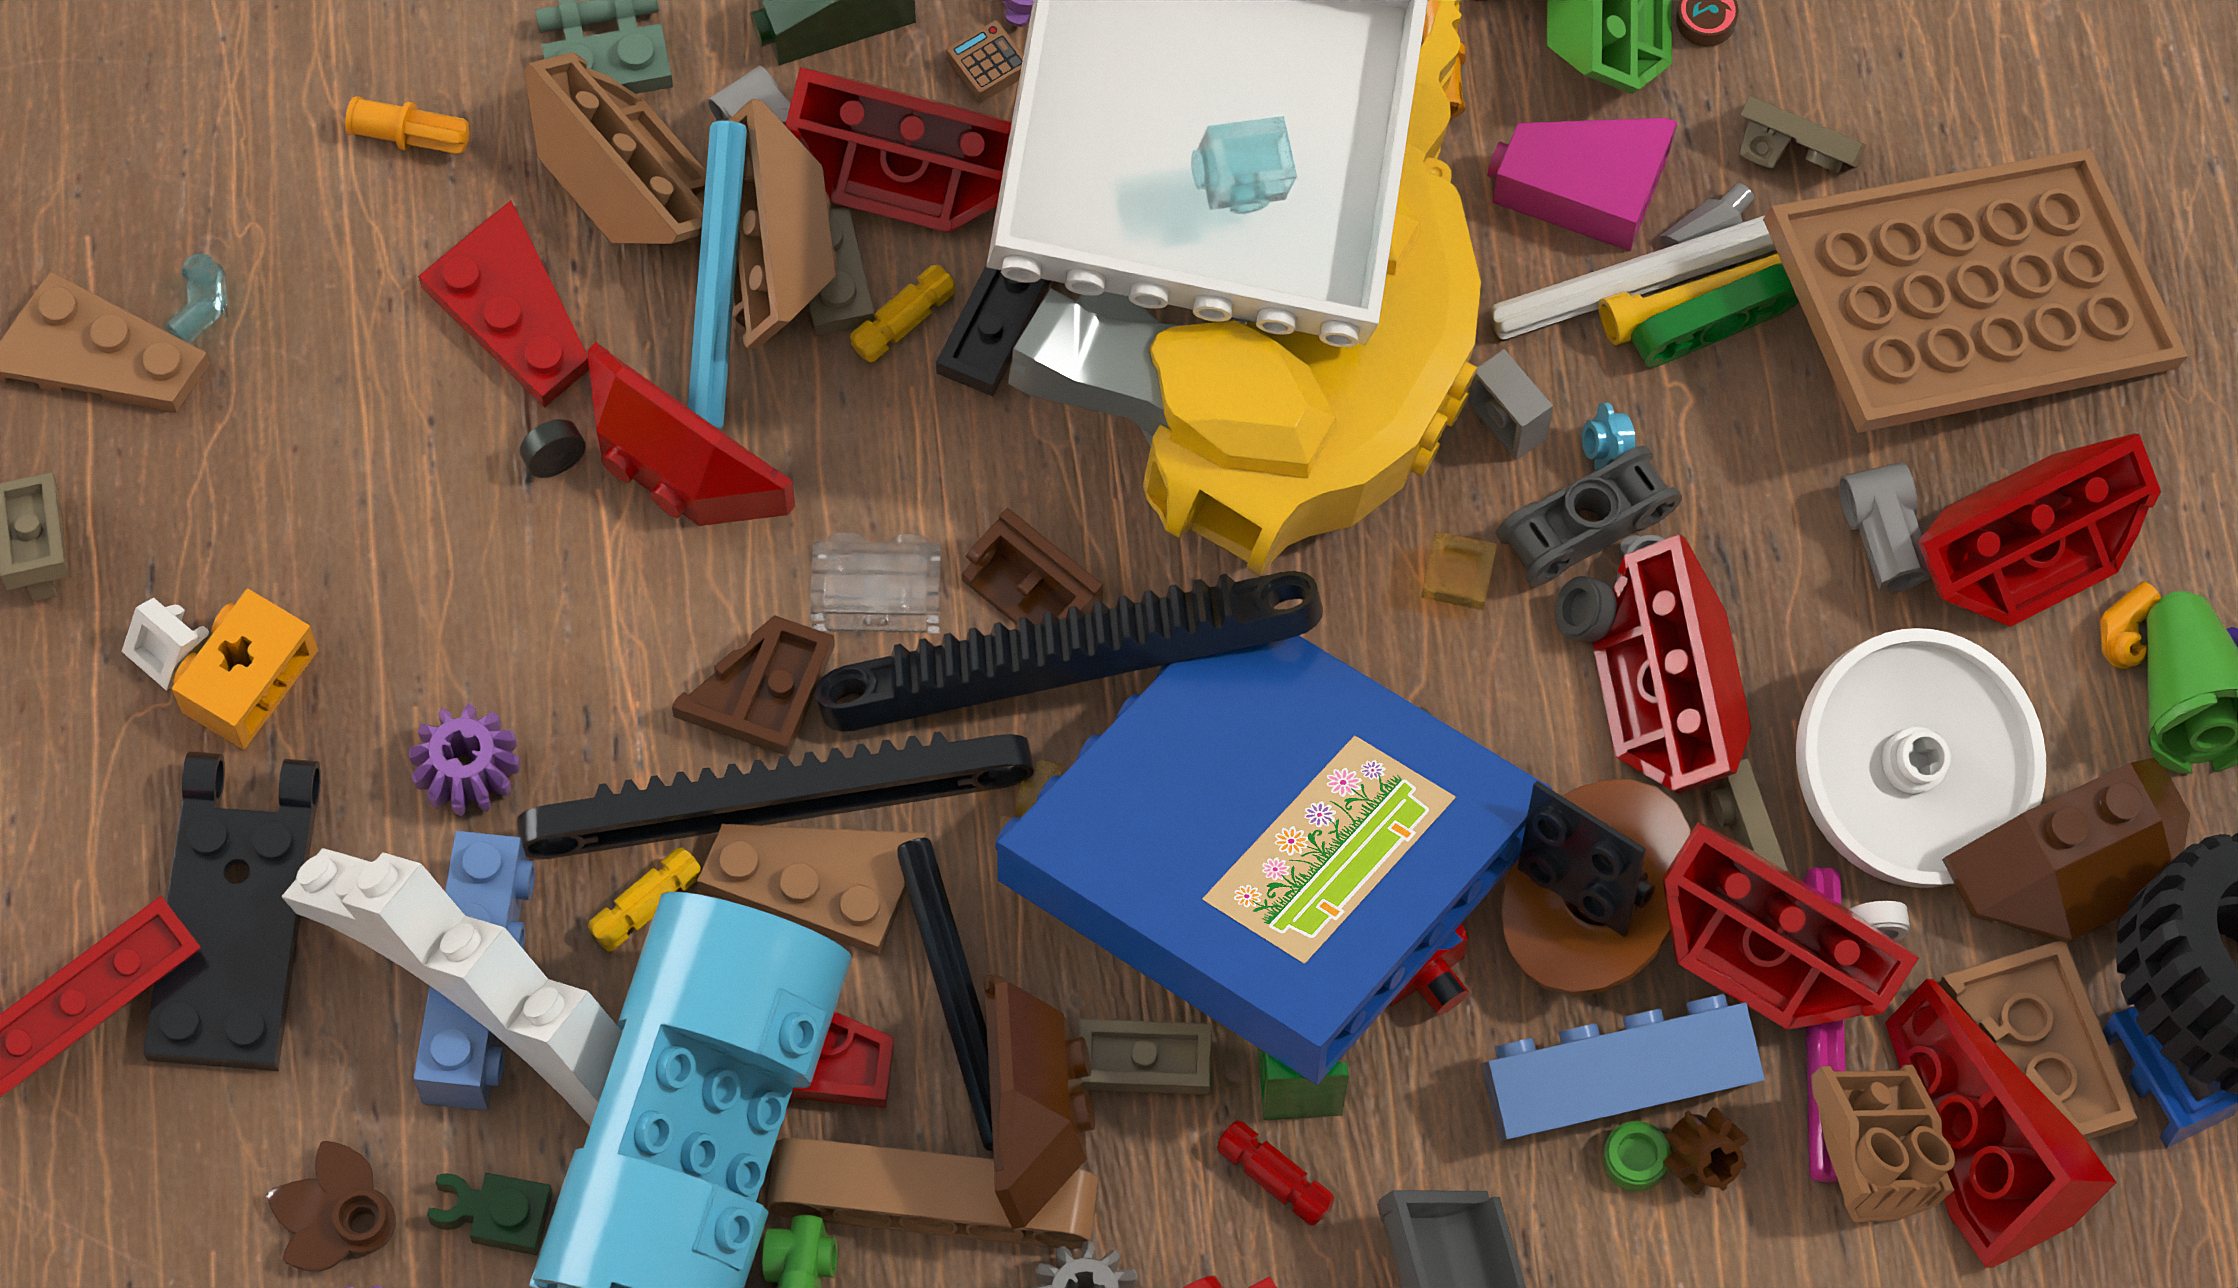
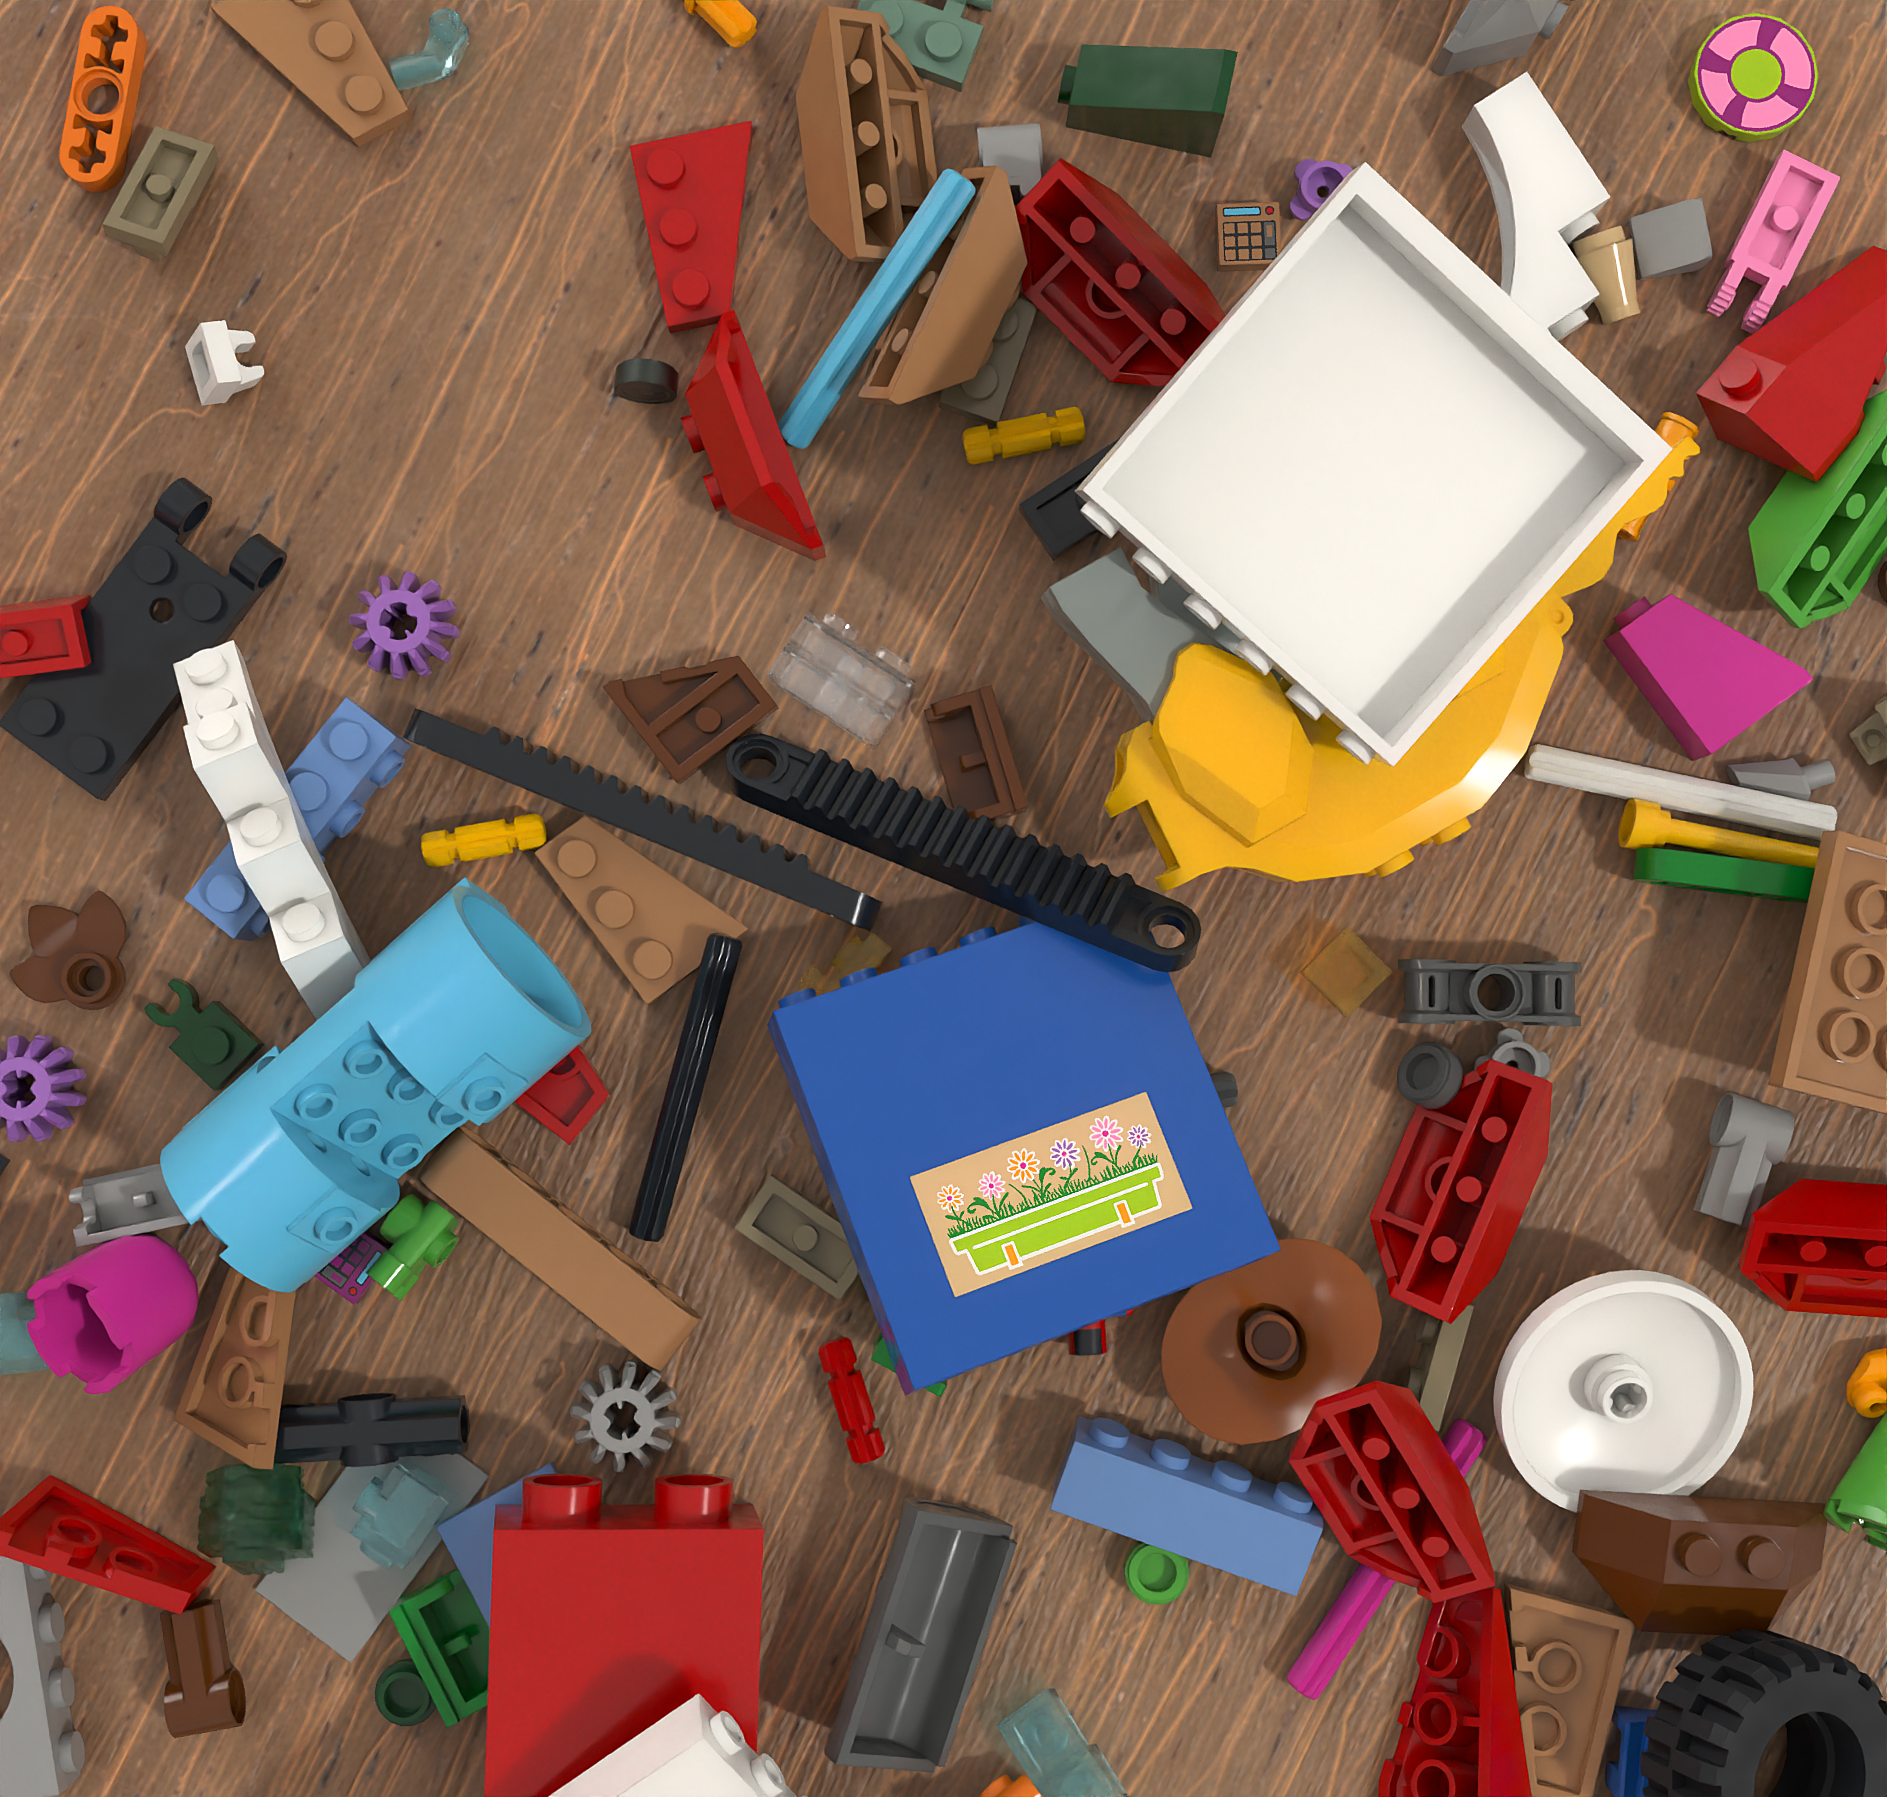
camera: 30 degrees right, 20 degrees up
(243, 699) = (303, 428): light orange brick -> none
(1034, 1098) = (678, 1237): reddish brown wedge -> none
(1244, 164) = (1363, 550): clear light blue brick -> none
(1510, 404) = (1490, 851): light grey piece -> none
(1583, 860) = (1270, 1356): black hinge -> none
(1607, 436) = (1553, 931): medium azure plate -> none
(1705, 1150) = (1211, 1613): reddish brown gear -> none
(1883, 1142) = (1365, 1697): medium nougat slope -> none
(1886, 916) = (1493, 1509): white tile -> none

